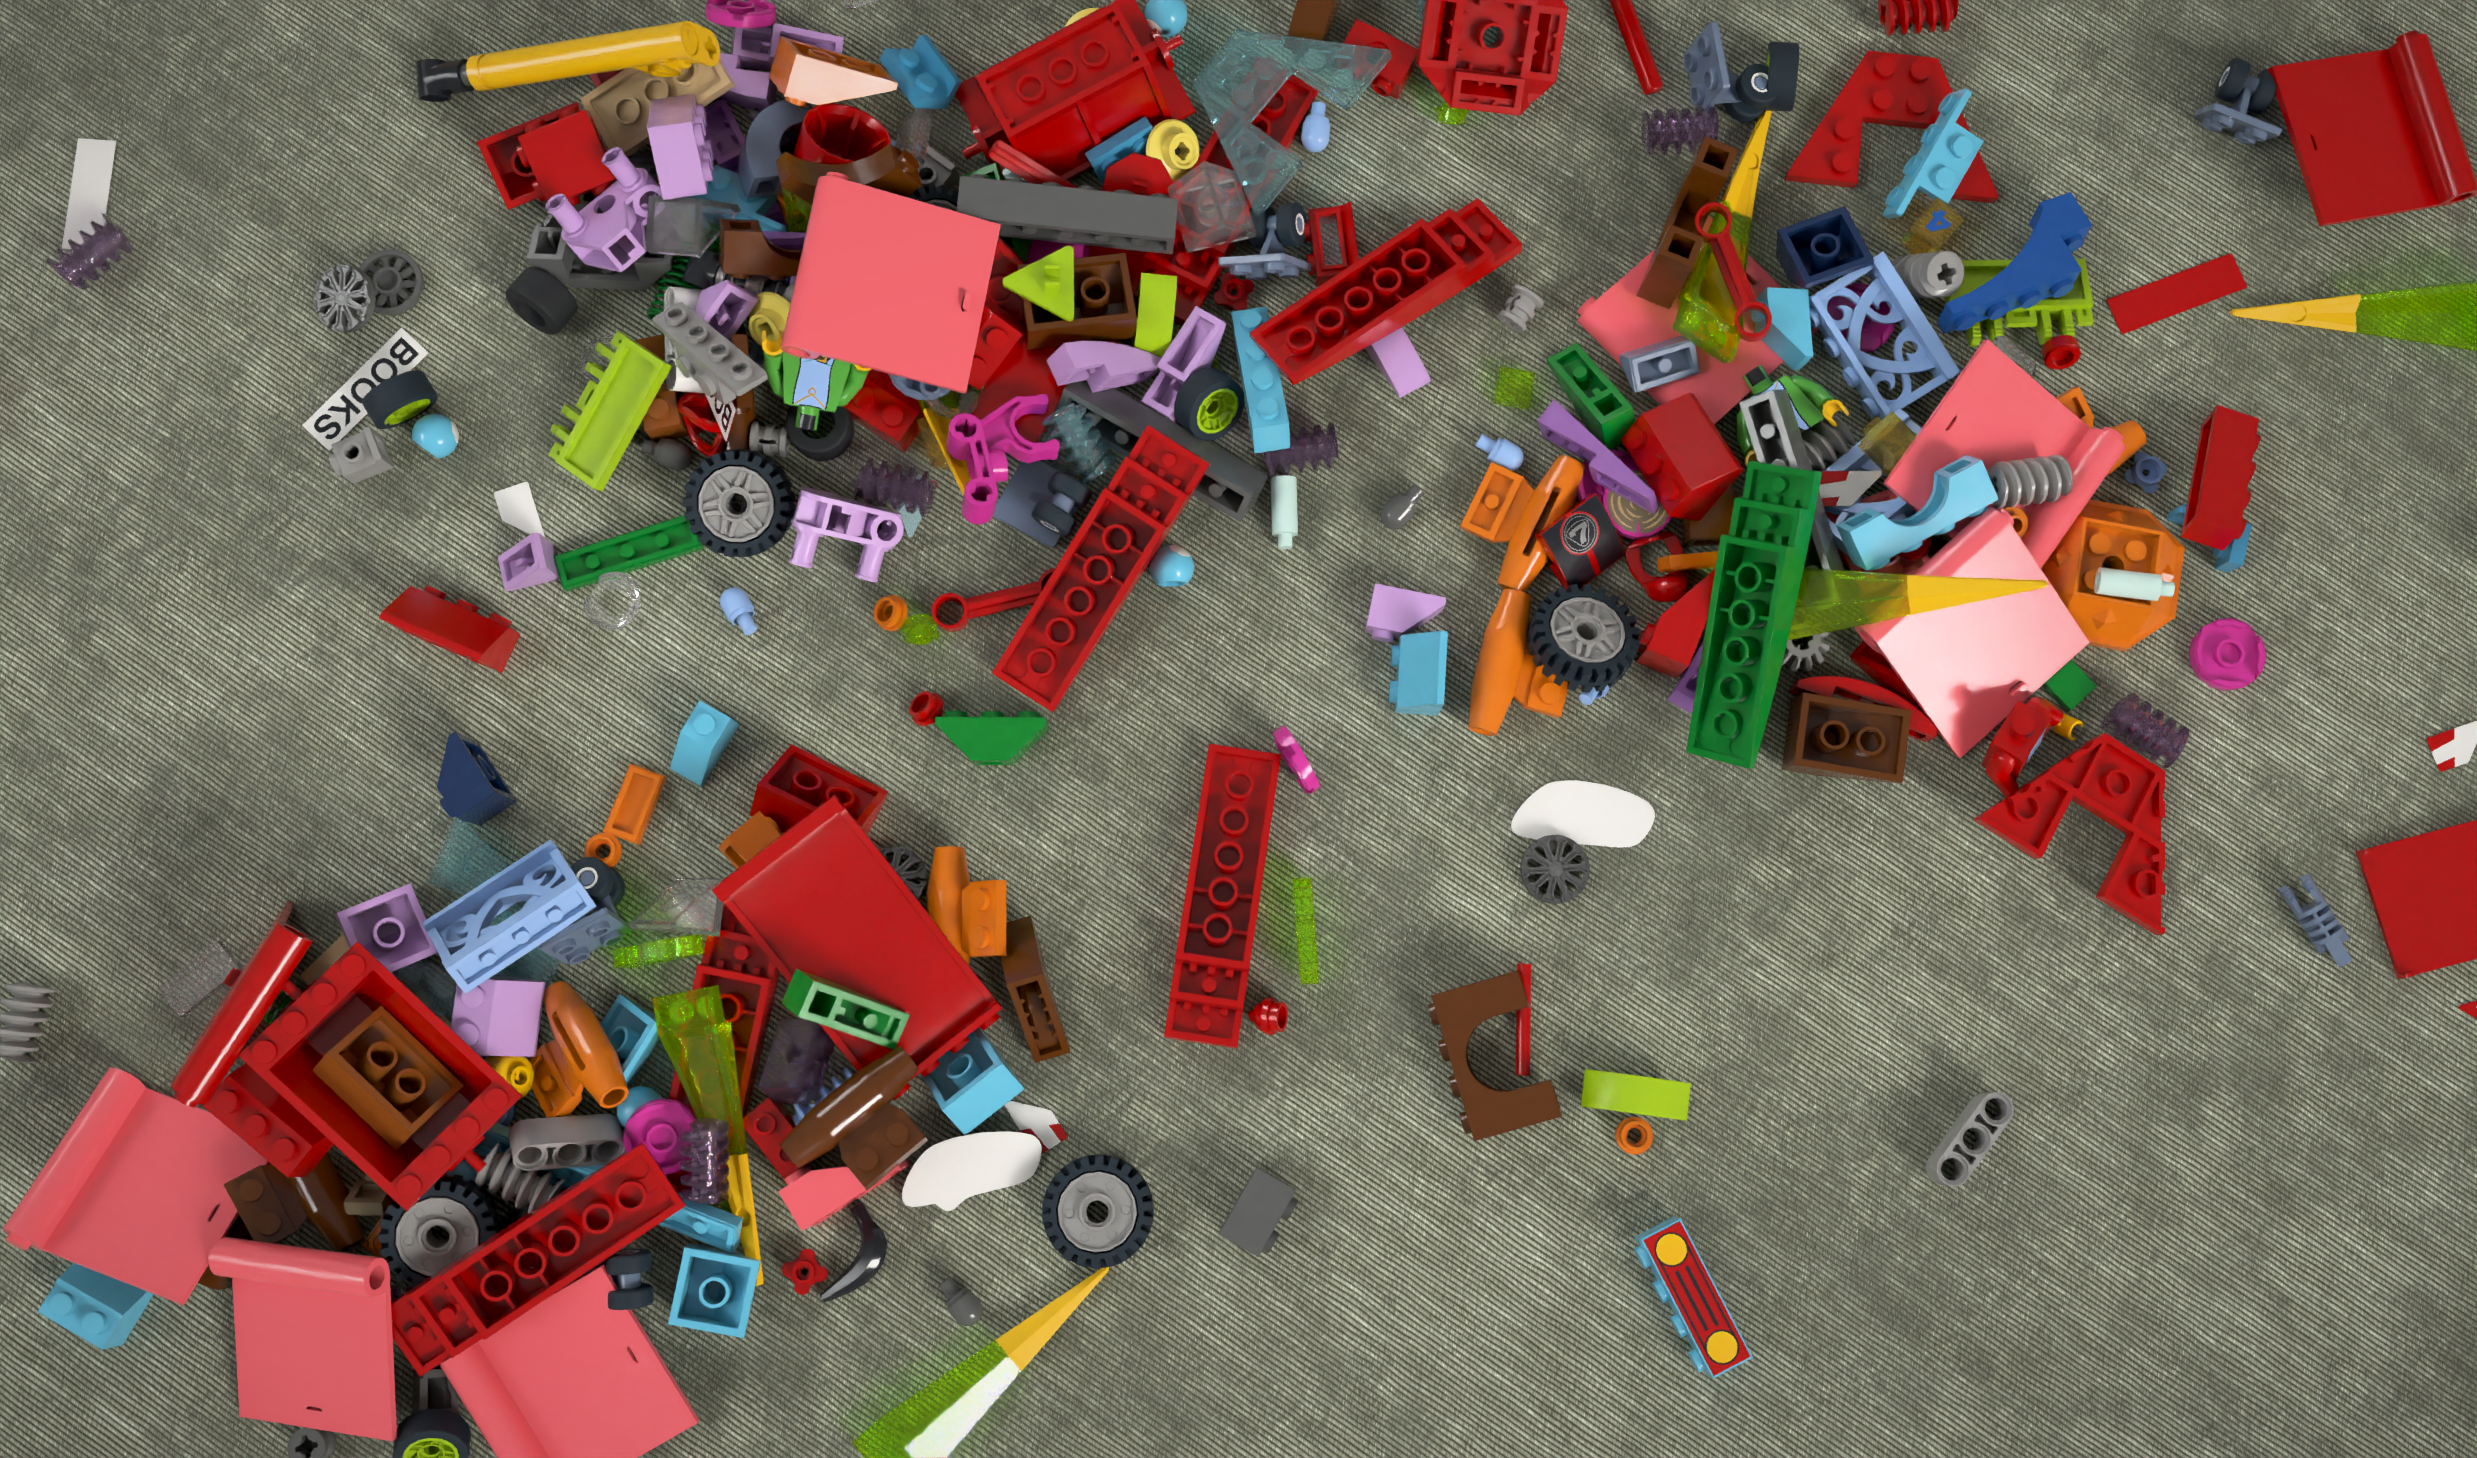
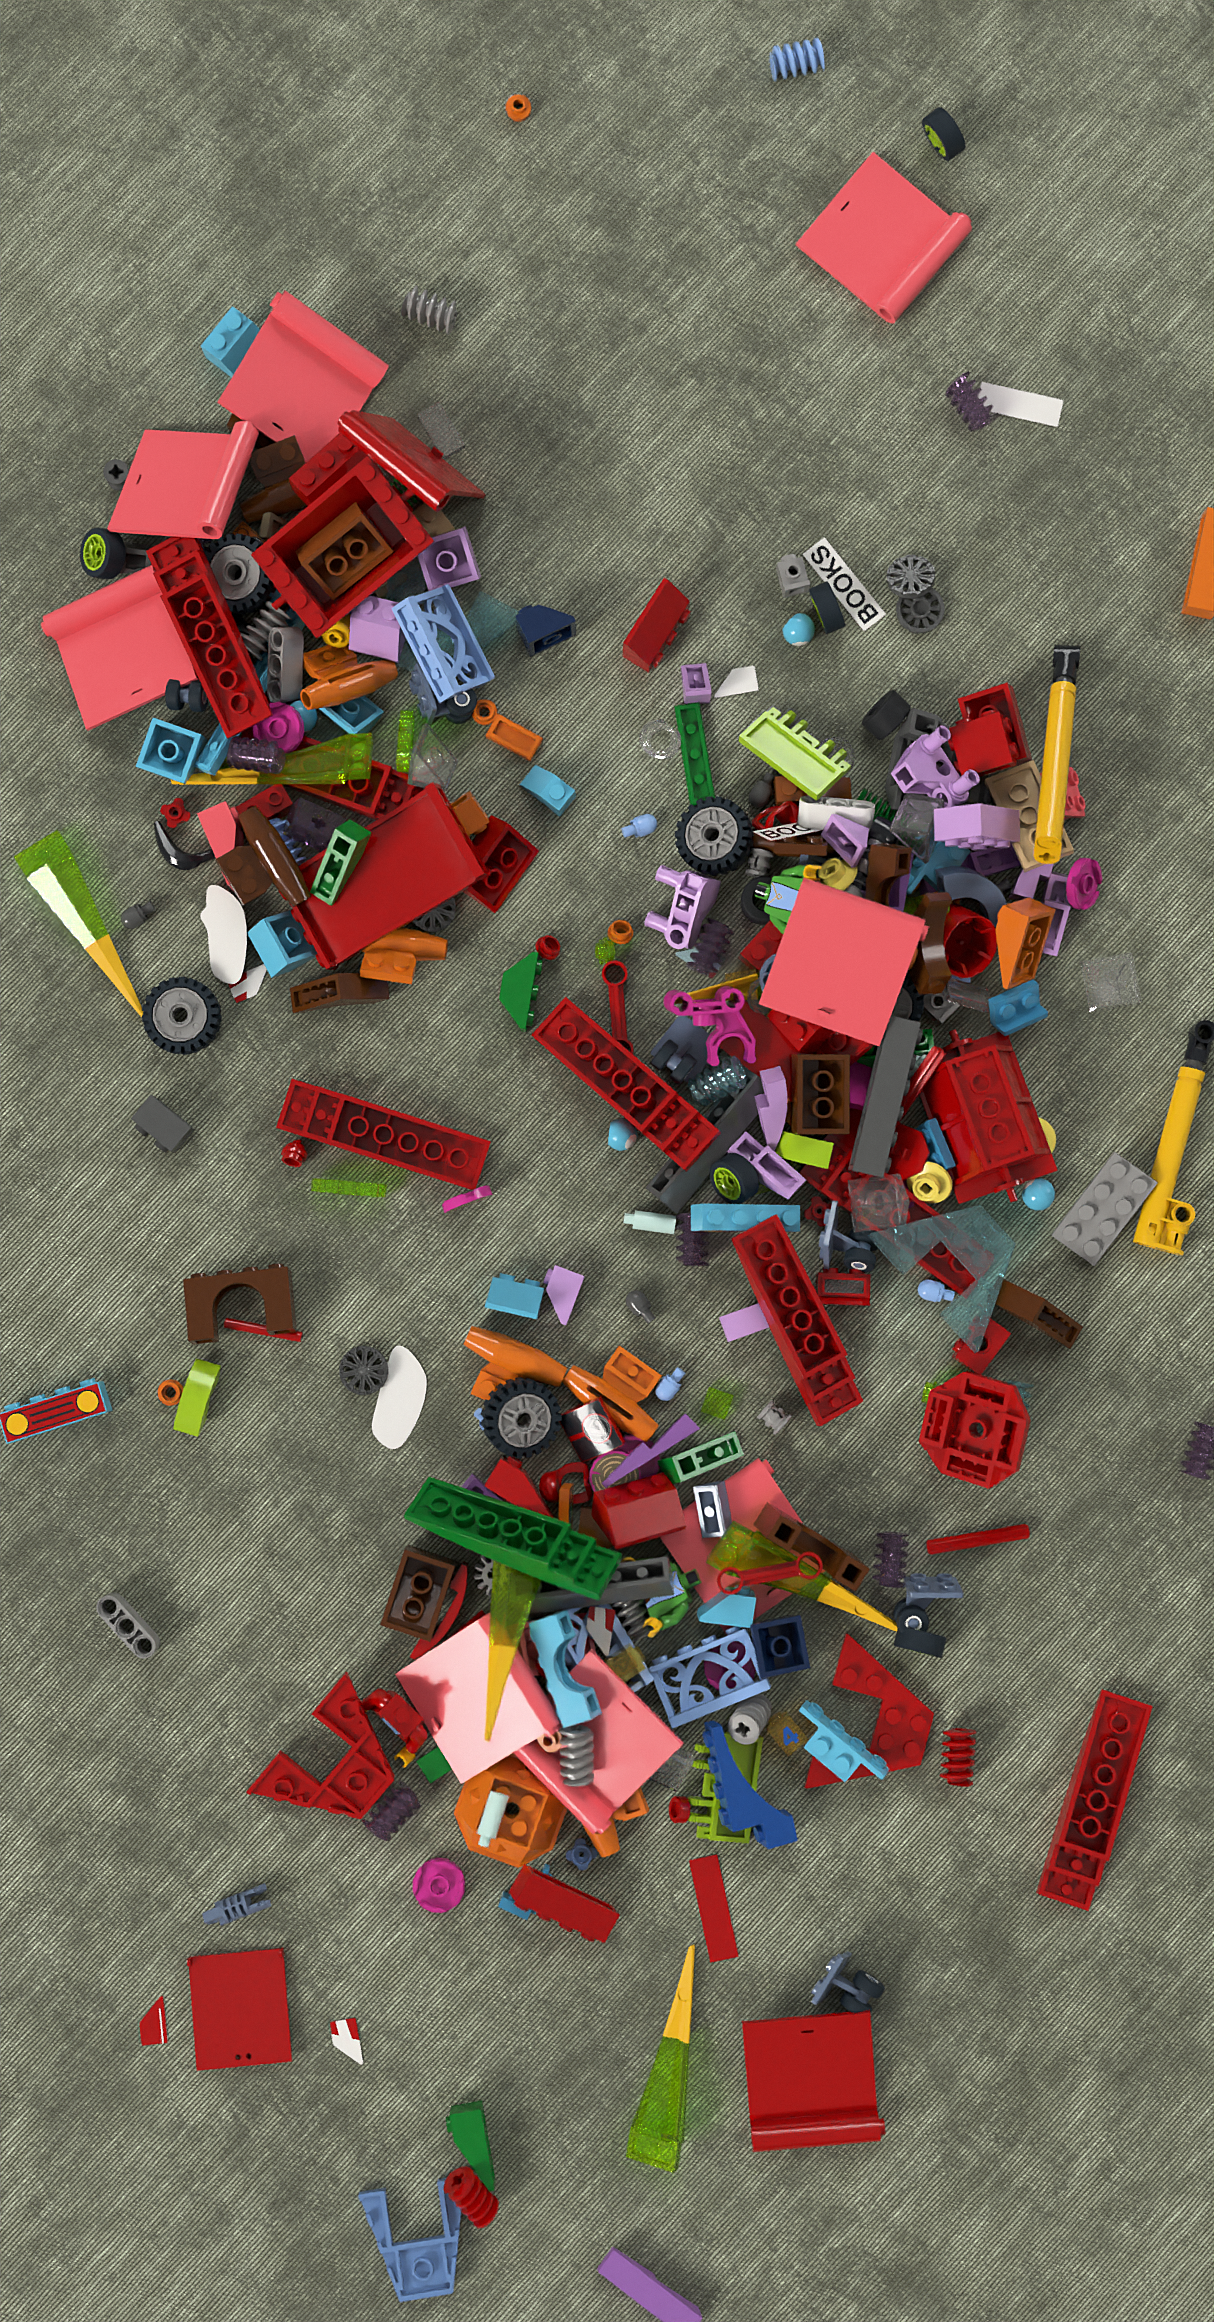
camera: 100 degrees right, 5 degrees up
(708, 355) = (813, 826): light grey bracket -> none
(1047, 283) = (832, 1074): lime piece -> none

